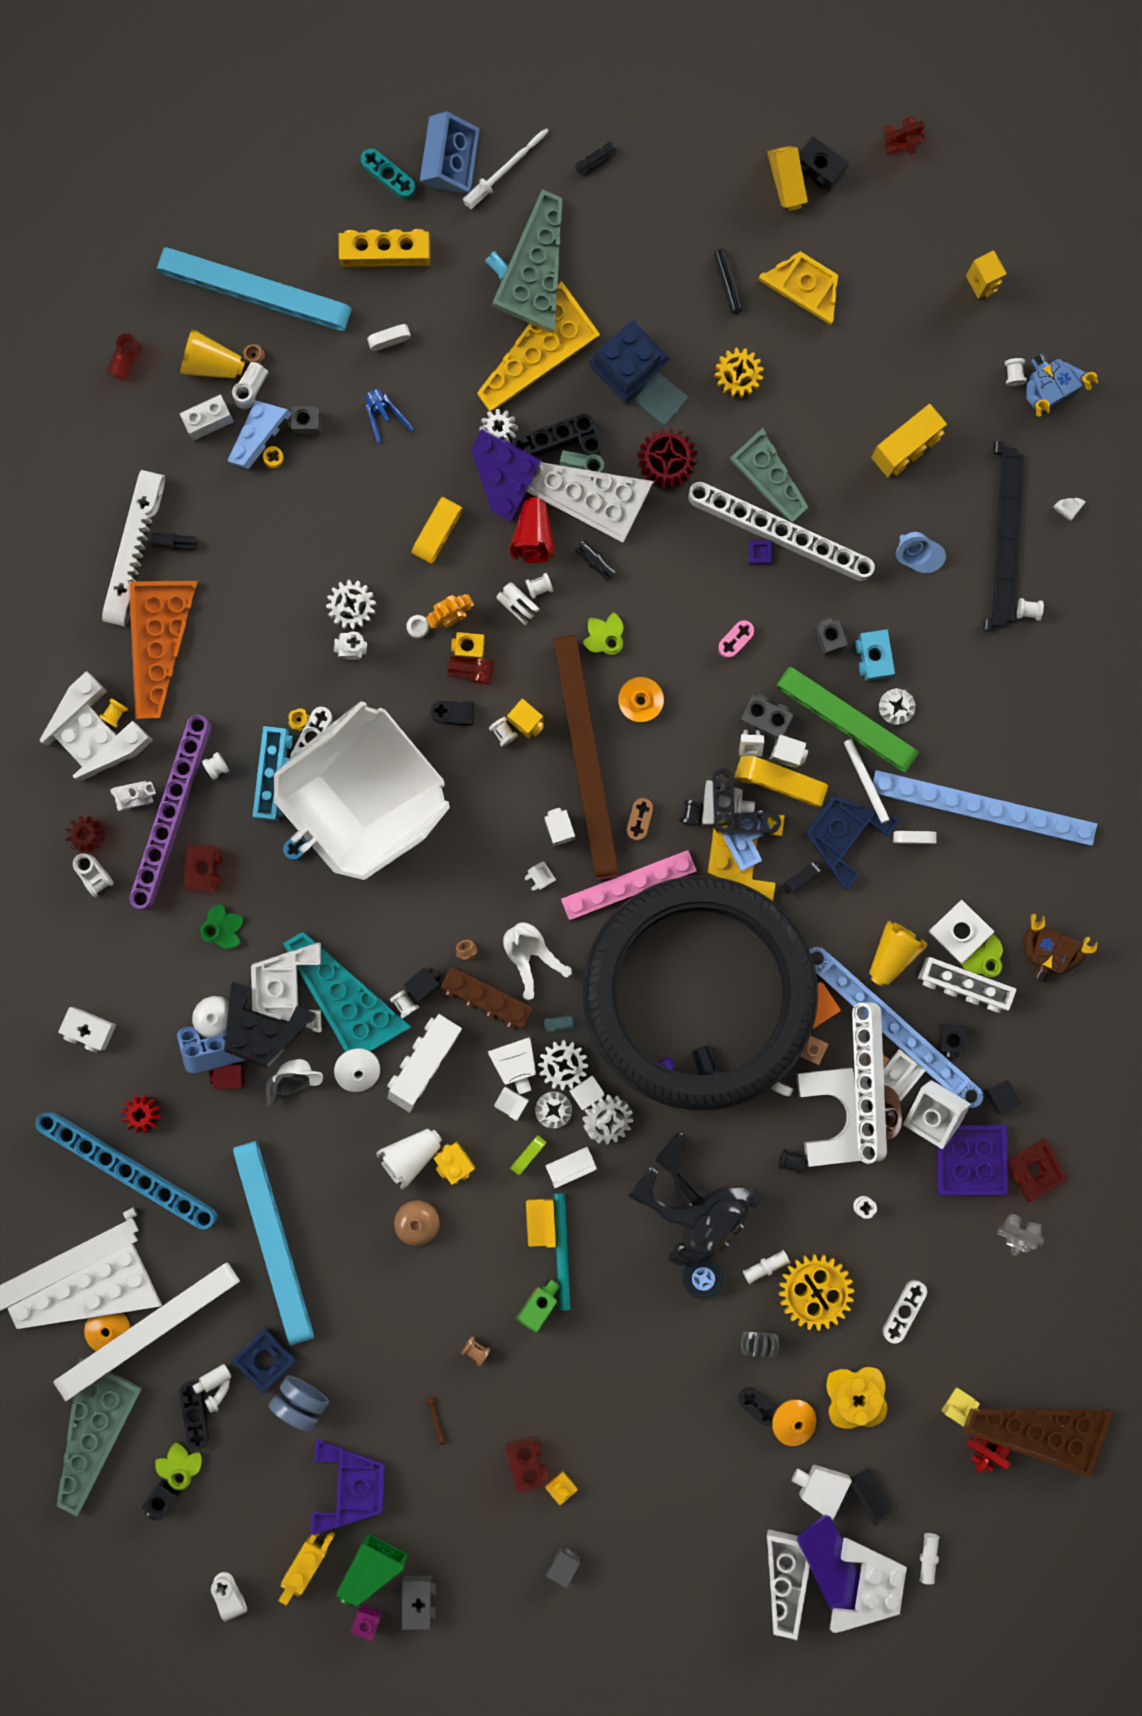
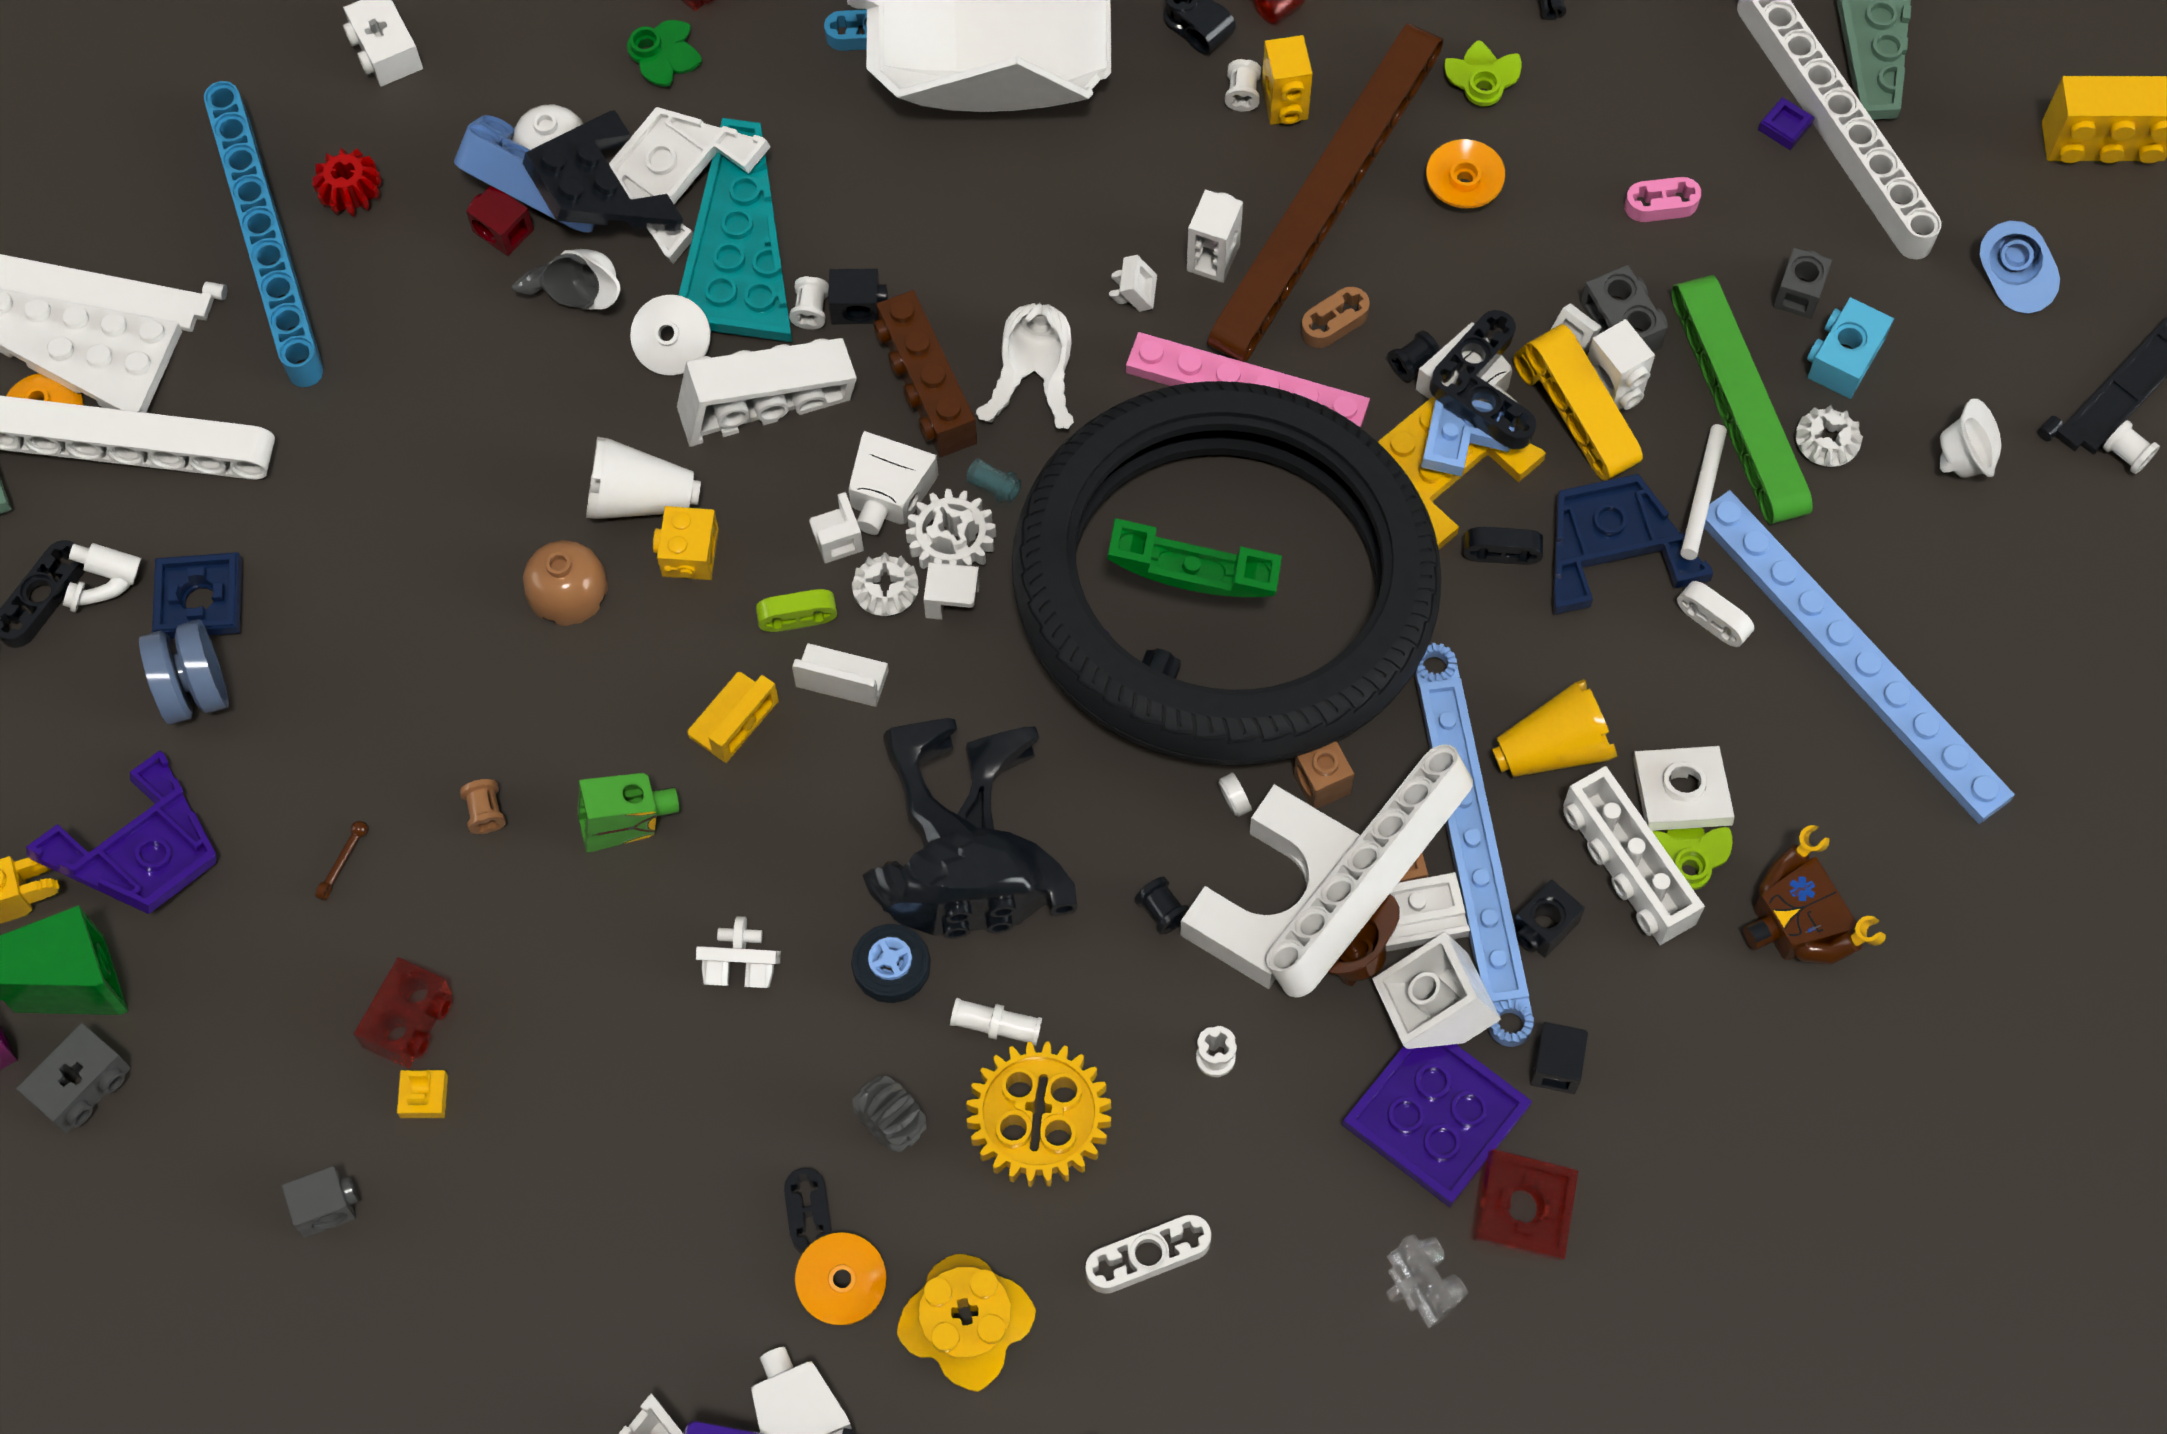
camera: 40 degrees right, 20 degrees down
(273, 1243) = (353, 462): medium azure beam -> none
(466, 950) = (952, 300): medium nougat plate -> none
(562, 1251) = (725, 774): teal piece -> none
(607, 1119) = (932, 631): white gear -> none
(637, 1326) = (758, 962): none -> white hips
(694, 1012) = (1192, 566): none -> green slope
(826, 1005) = (1387, 735): orange slope -> none
(963, 663) = (1971, 443): none -> white piece

